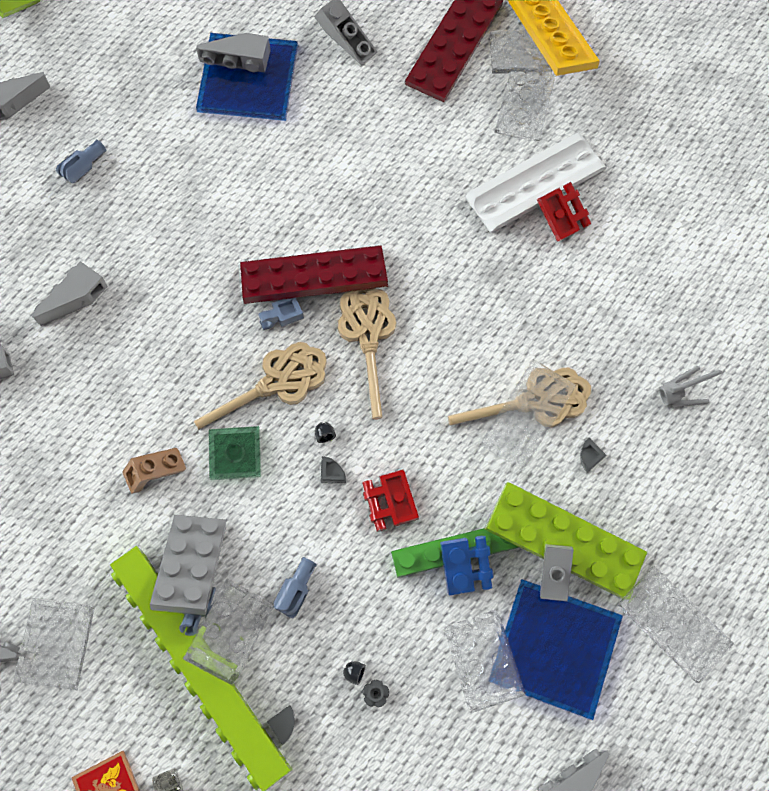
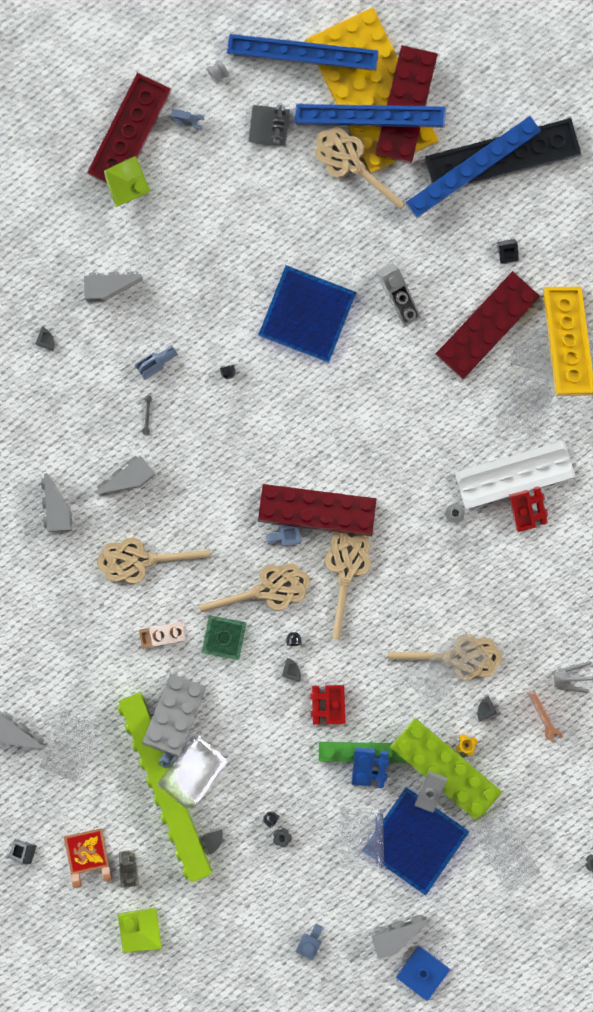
camera: 15 degrees right, 15 degrees up
(84, 239) = (146, 430): none -> dark grey hinge
(99, 394) = (153, 558): none -> tan piece
(169, 152) = (228, 372): none -> black hinge
(238, 51) = (305, 295): light grey slope -> none
(295, 589) = (244, 751): sand blue arm -> none
(476, 244) = (450, 517): none -> light grey plate
(587, 500) = (462, 748): none -> yellow plate
(667, 438) = (549, 729): none -> nougat flag

